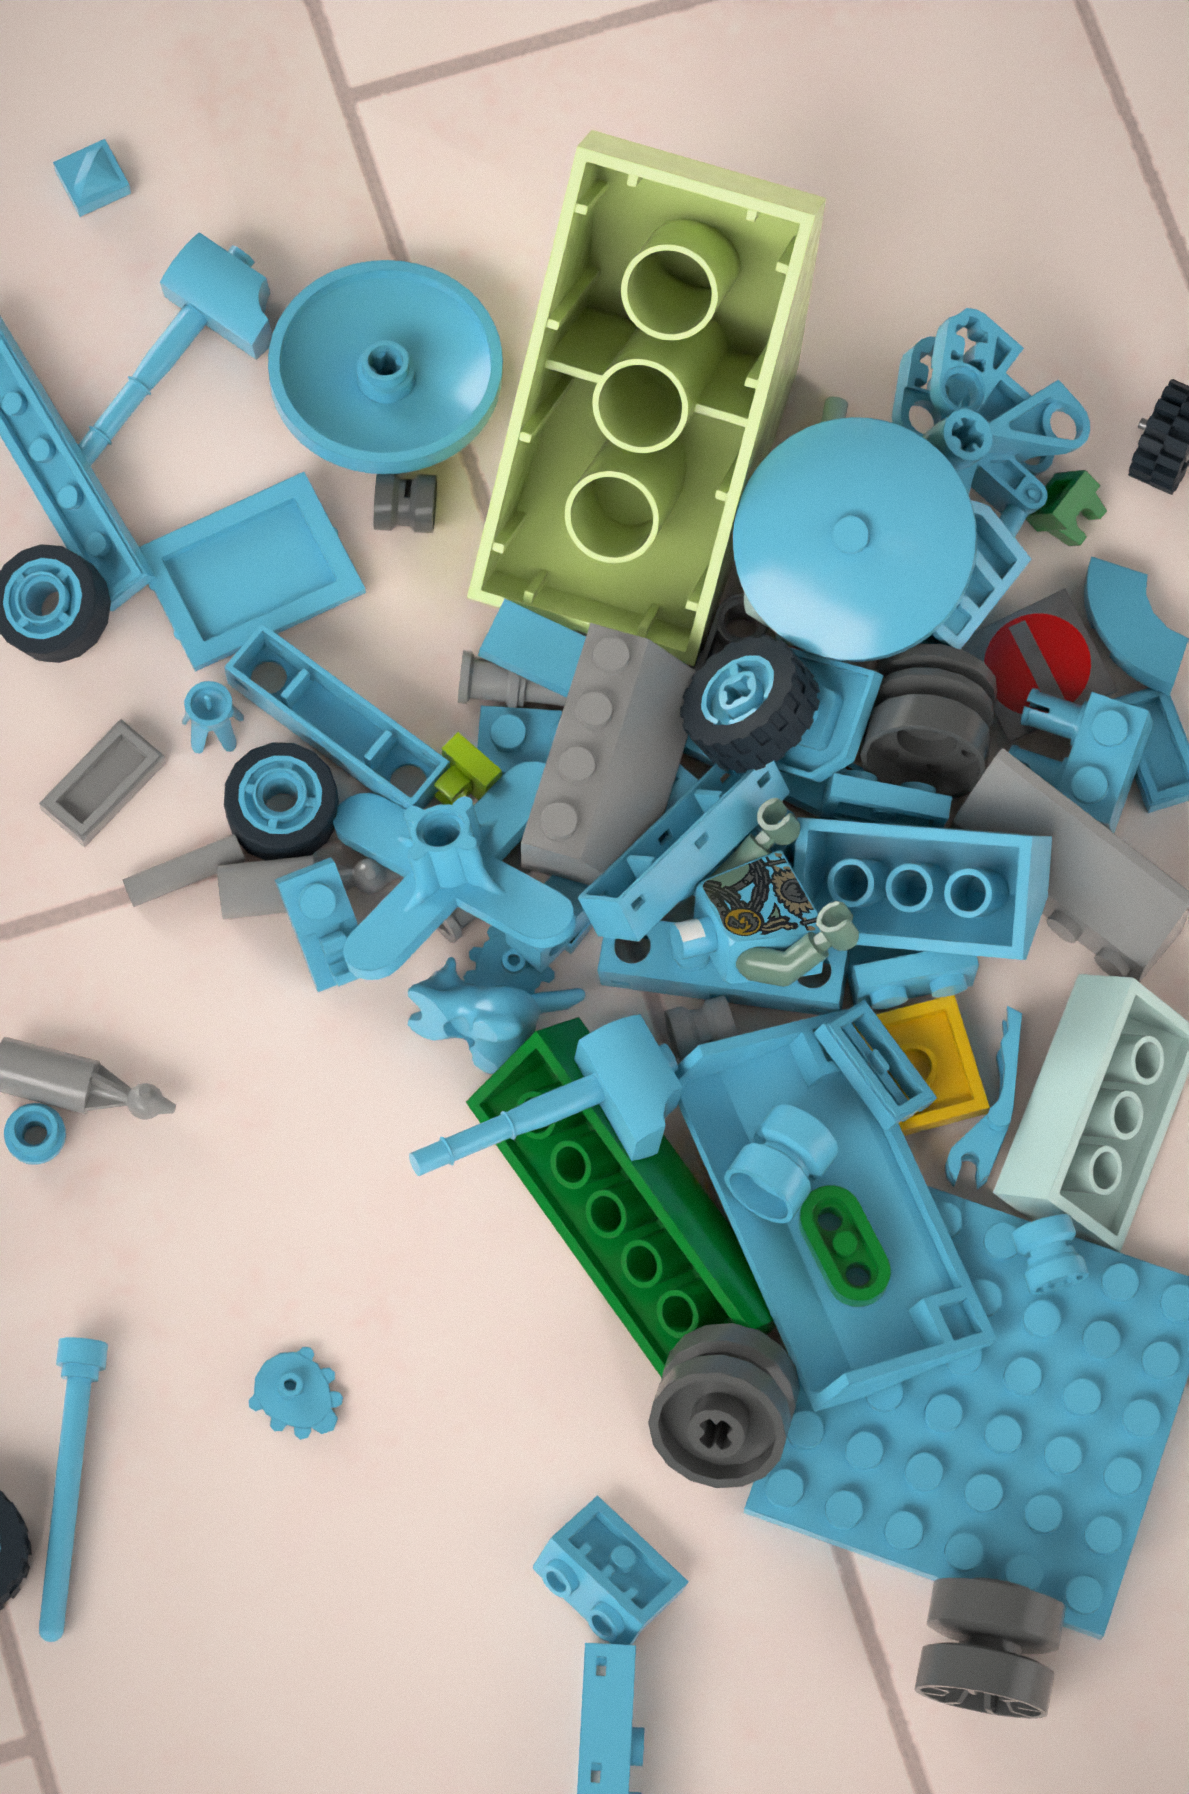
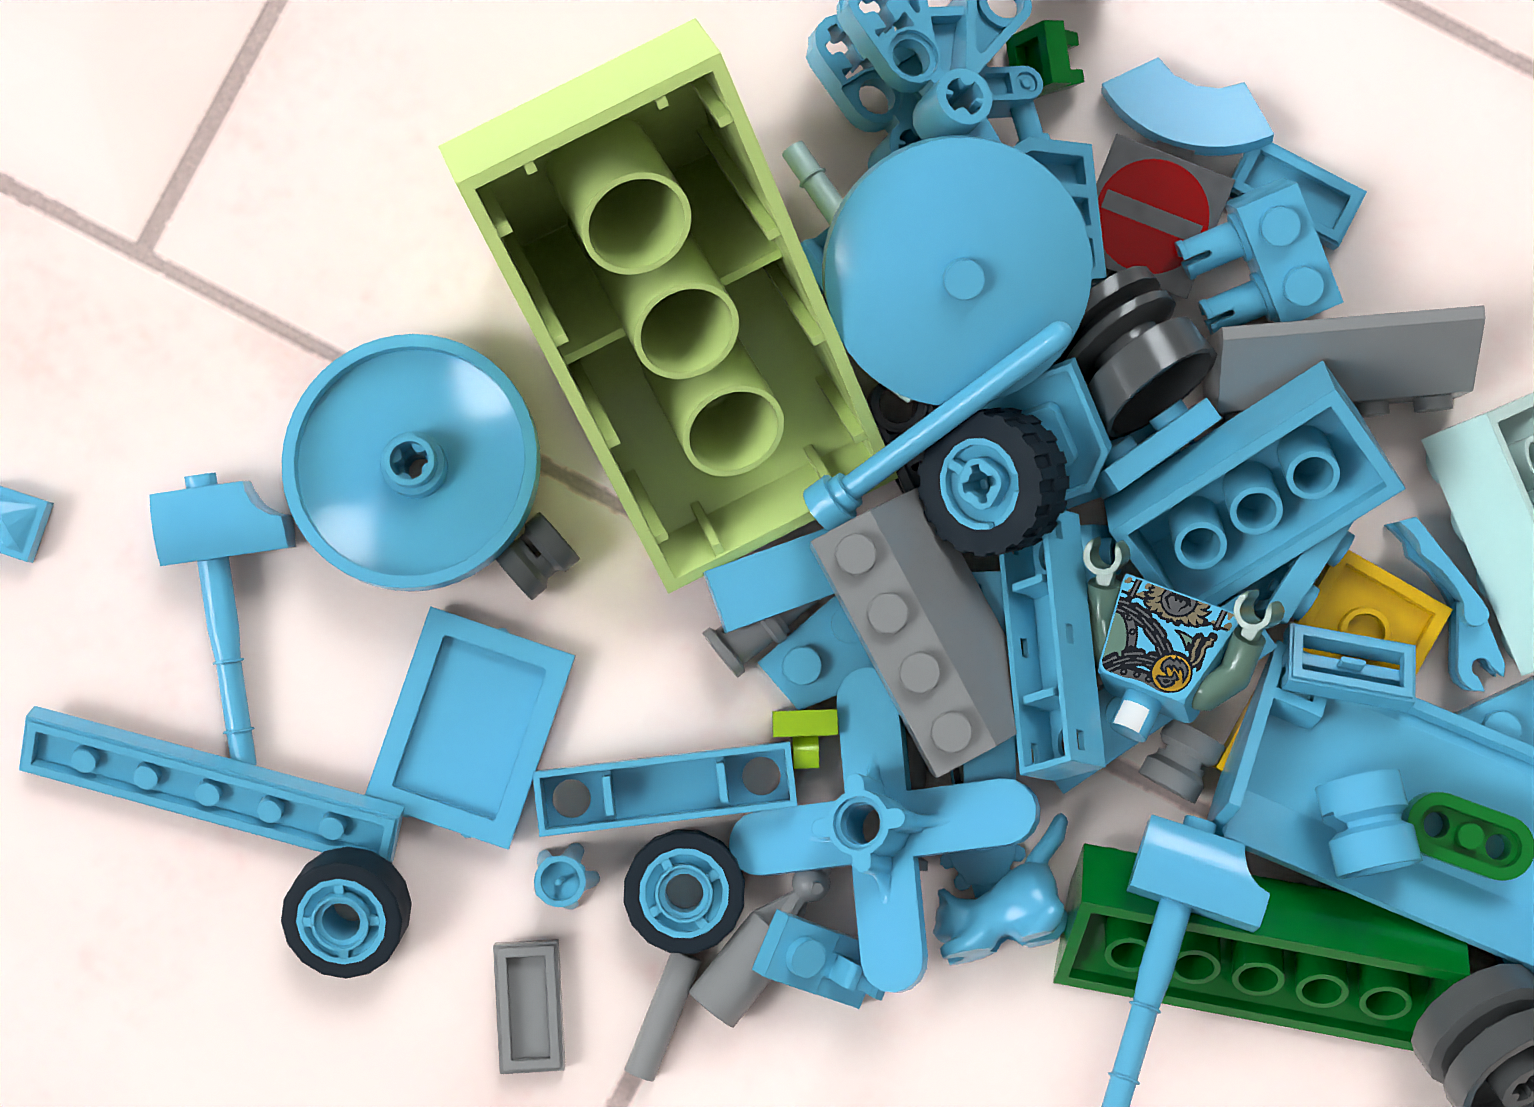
camera: 50 degrees left, 15 degrees up
(644, 622) = (837, 497): none -> medium azure piece

